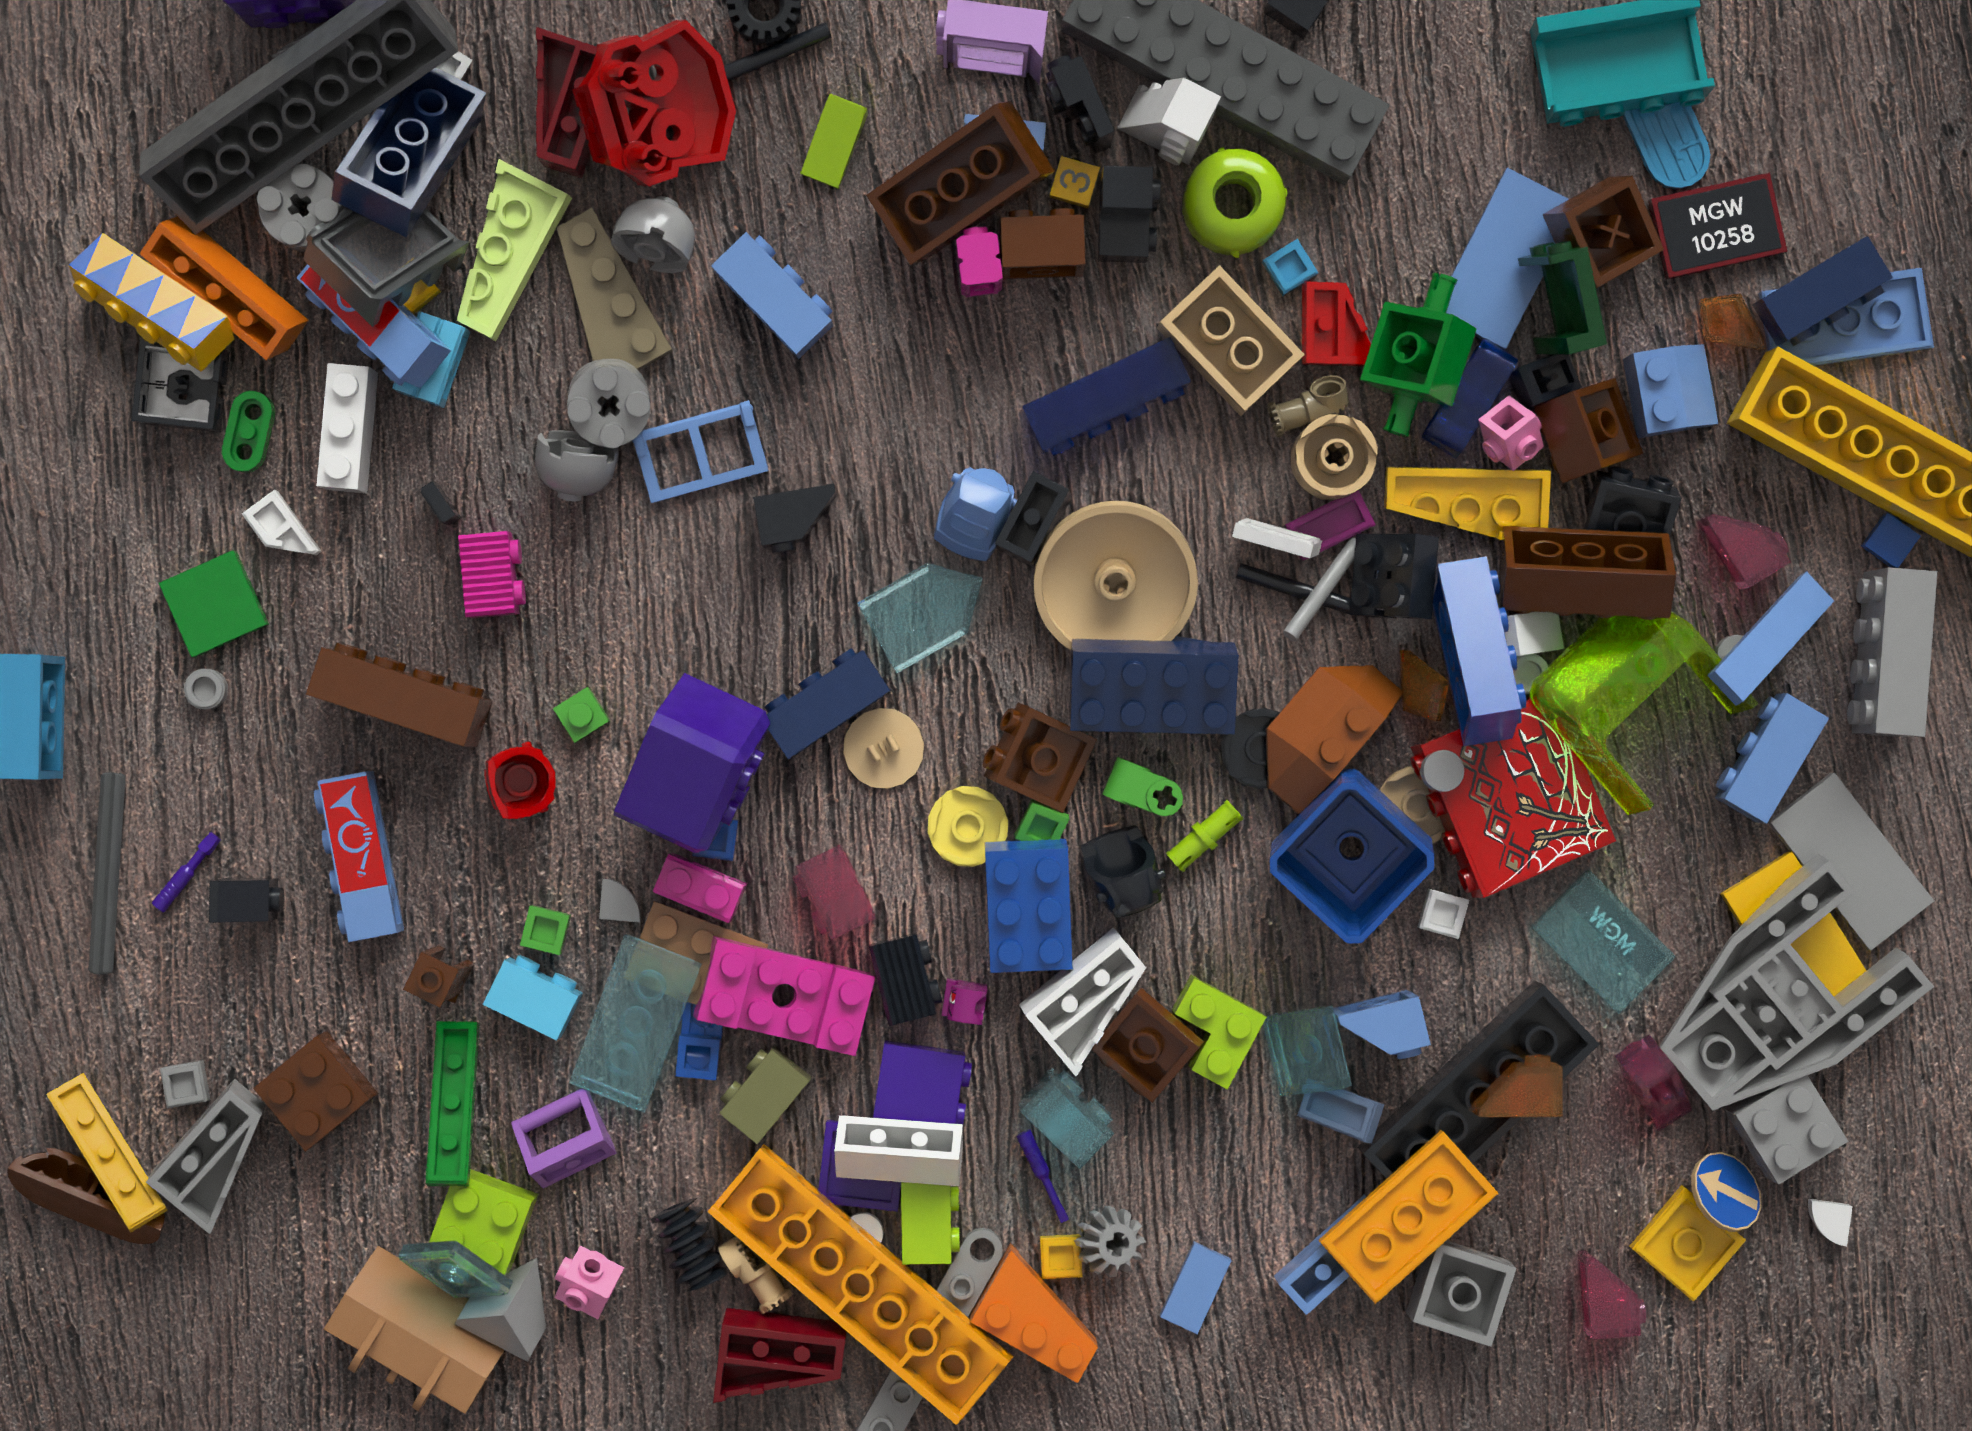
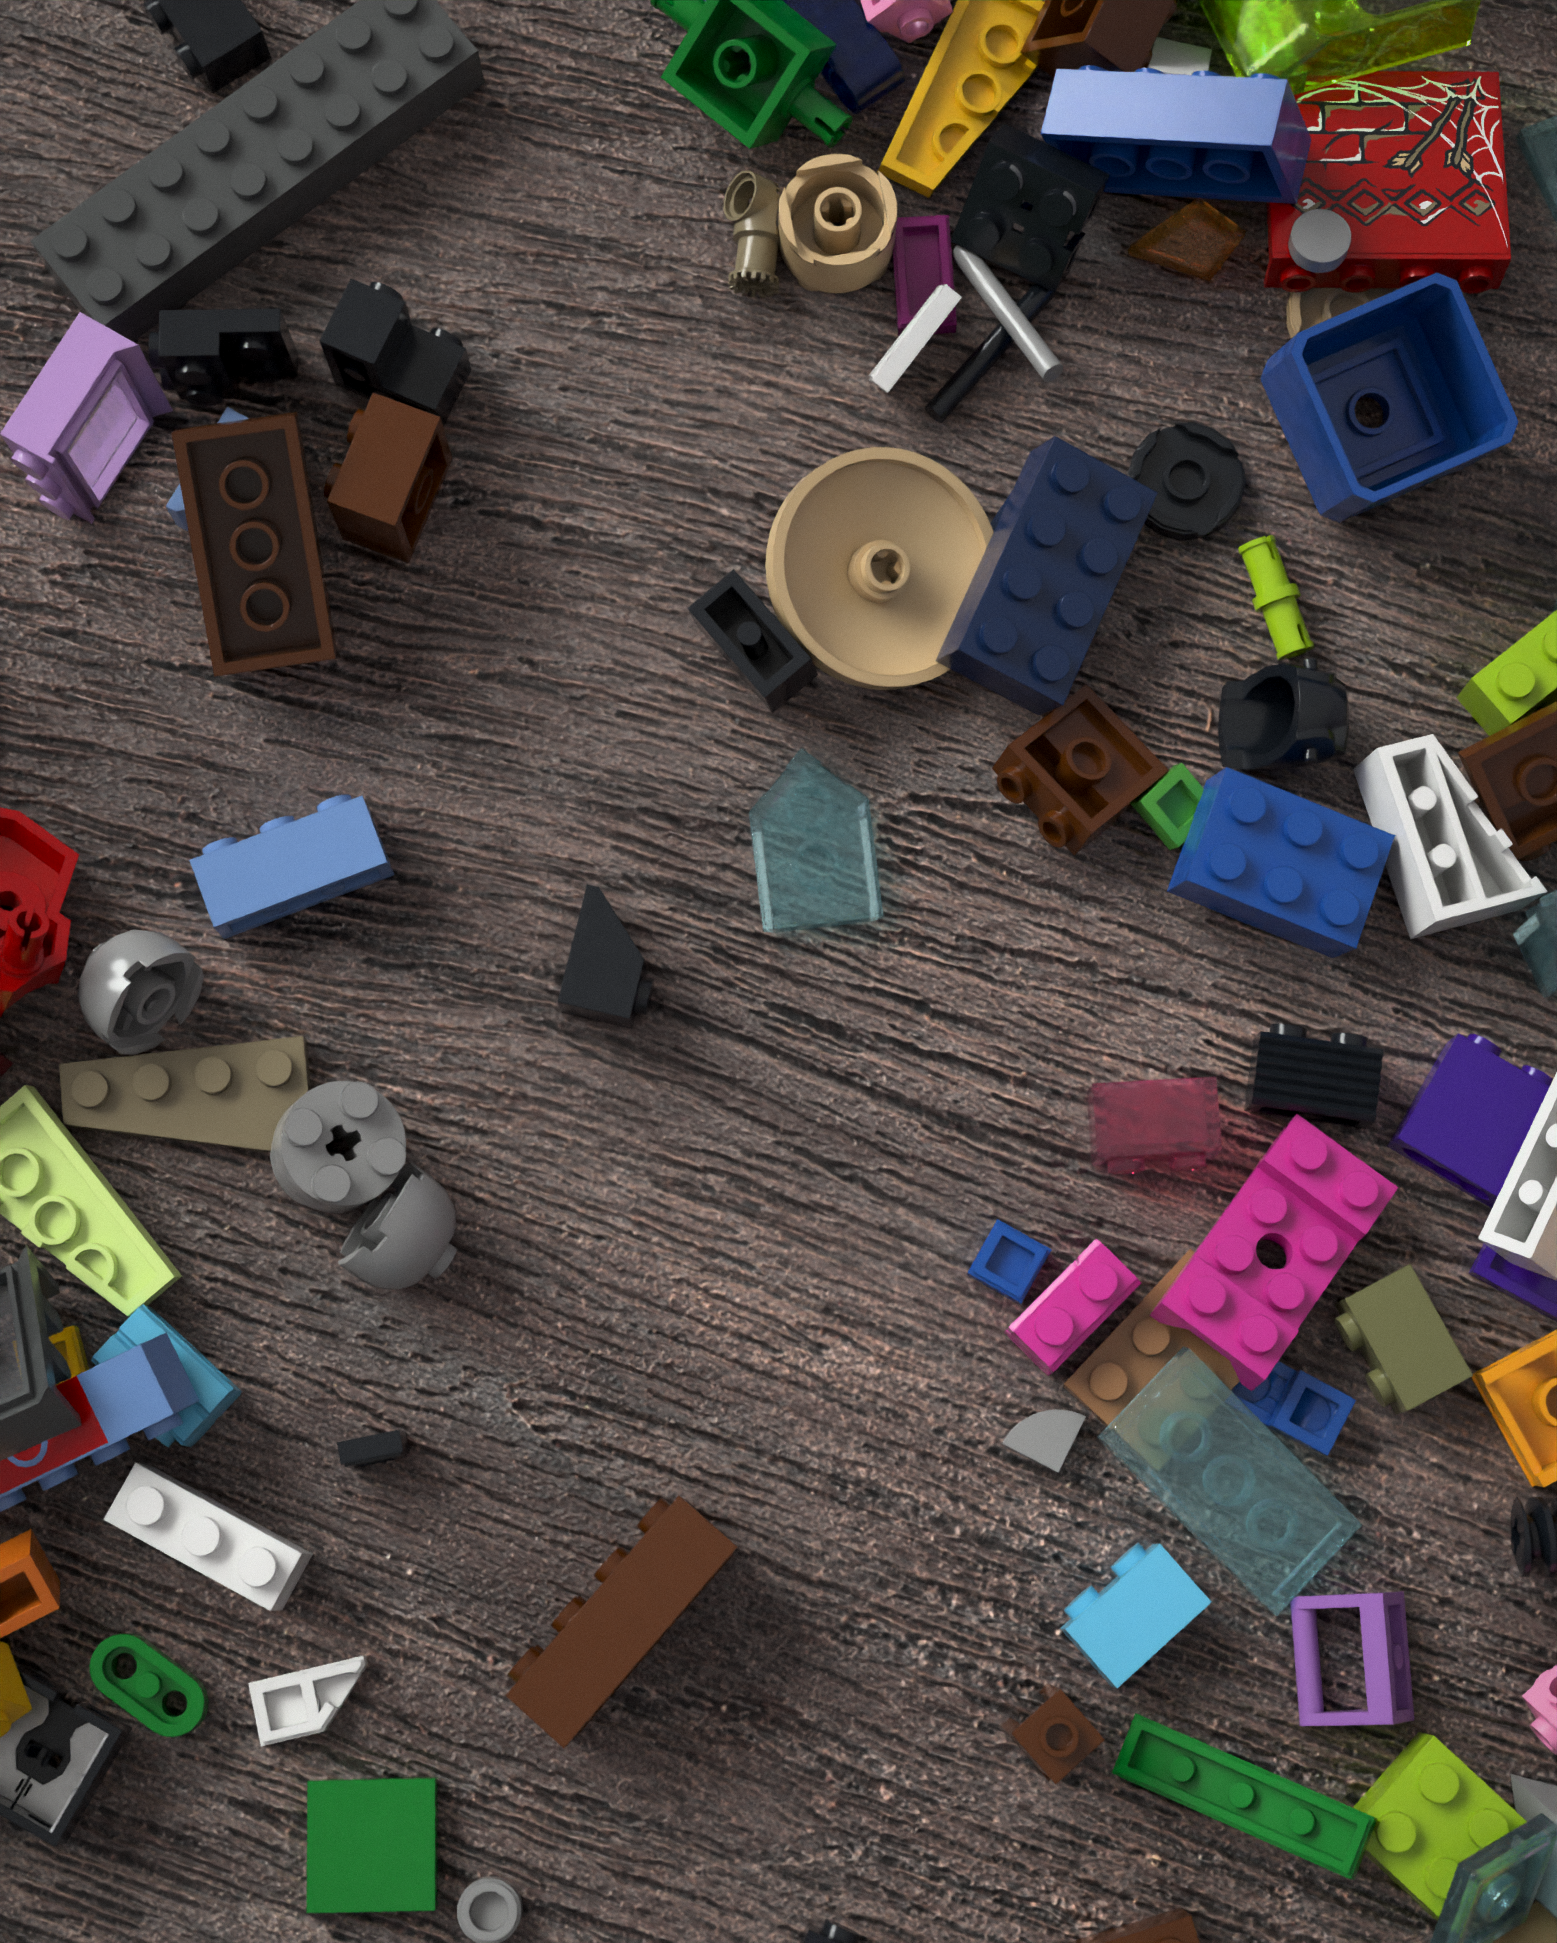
camera: 70 degrees left, 10 degrees down
(359, 856) = (829, 1783): brick -> none
(490, 574) = (504, 1419): dark pink brick -> none
(520, 781) = (818, 1498): red helmet -> none
(545, 929) = (1043, 1556): bright green plate -> none
(581, 714) = (757, 1377): bright green plate -> none
(694, 765) = (902, 1229): dark purple plate -> none
(744, 409) = (419, 1052): medium blue window -> none
(825, 702) = (883, 1027): dark blue brick -> none
(834, 141) = (121, 701): lime slope -> none
(883, 748) = (978, 979): tan piece -> none
(964, 822) = (1128, 913): light yellow tile -> none
(964, 1001) = (1380, 1005): magenta leg -> none
(974, 513) = (709, 720): medium blue helmet -> none
(979, 262) = (374, 568): dark pink brick -> none
(1074, 182) = (323, 413): yellow tile -> none
(1106, 396) = (627, 485): clear blue brick -> none
(1135, 787) = (1175, 655): bright green piece -> none
(1171, 117) = (299, 236): white wedge -> none
(1220, 232) = (449, 261): lime piece -> none
(1230, 340) = (625, 292): tan brick -> none
(1290, 267) = (560, 189): dark azure tile -> none
(1325, 729) = (1201, 383): dark orange wedge -> none
(1331, 326) = (663, 164): red wing -> none
(1443, 913) = (1508, 335): white tile -> none

